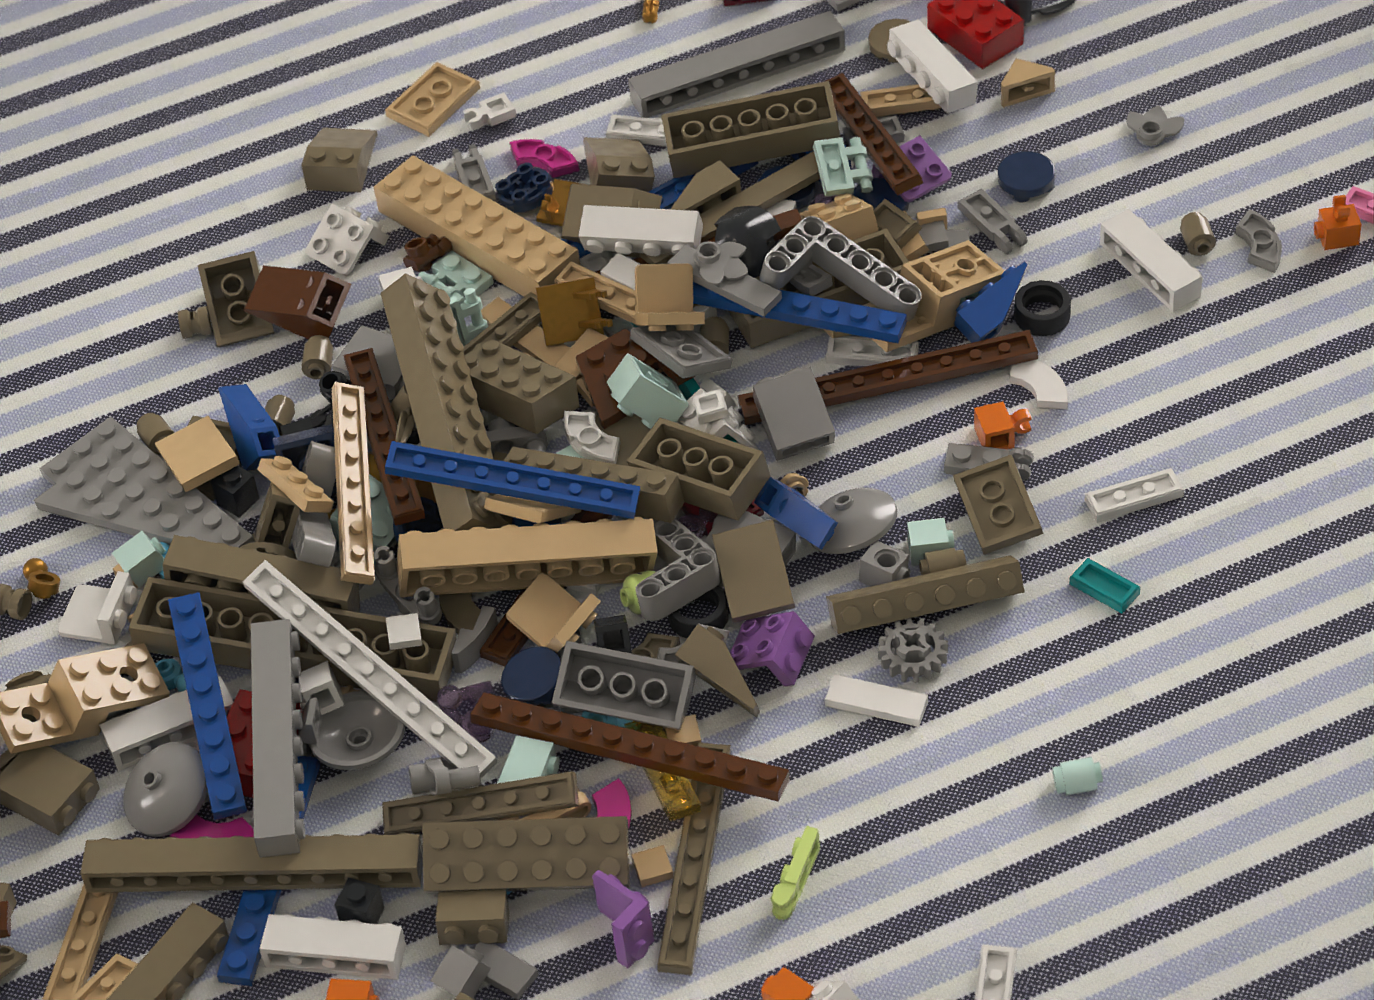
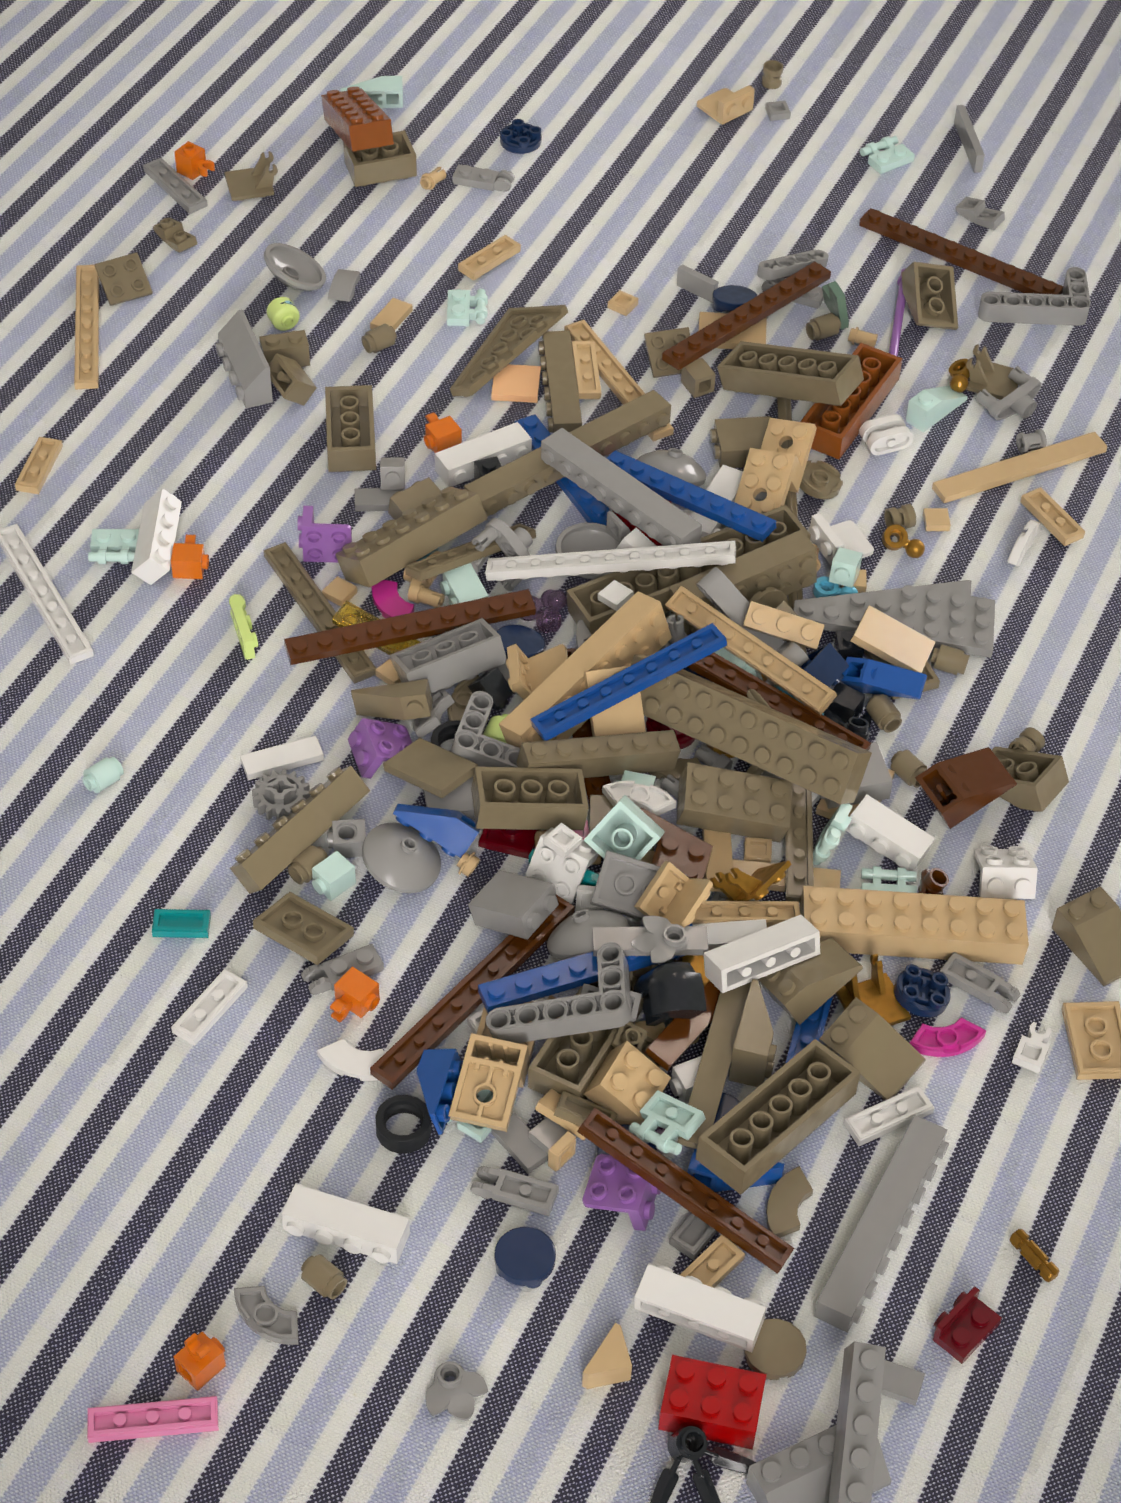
camera: 135 degrees right, 0 degrees up
(769, 335) = (574, 934): none -> light grey dish

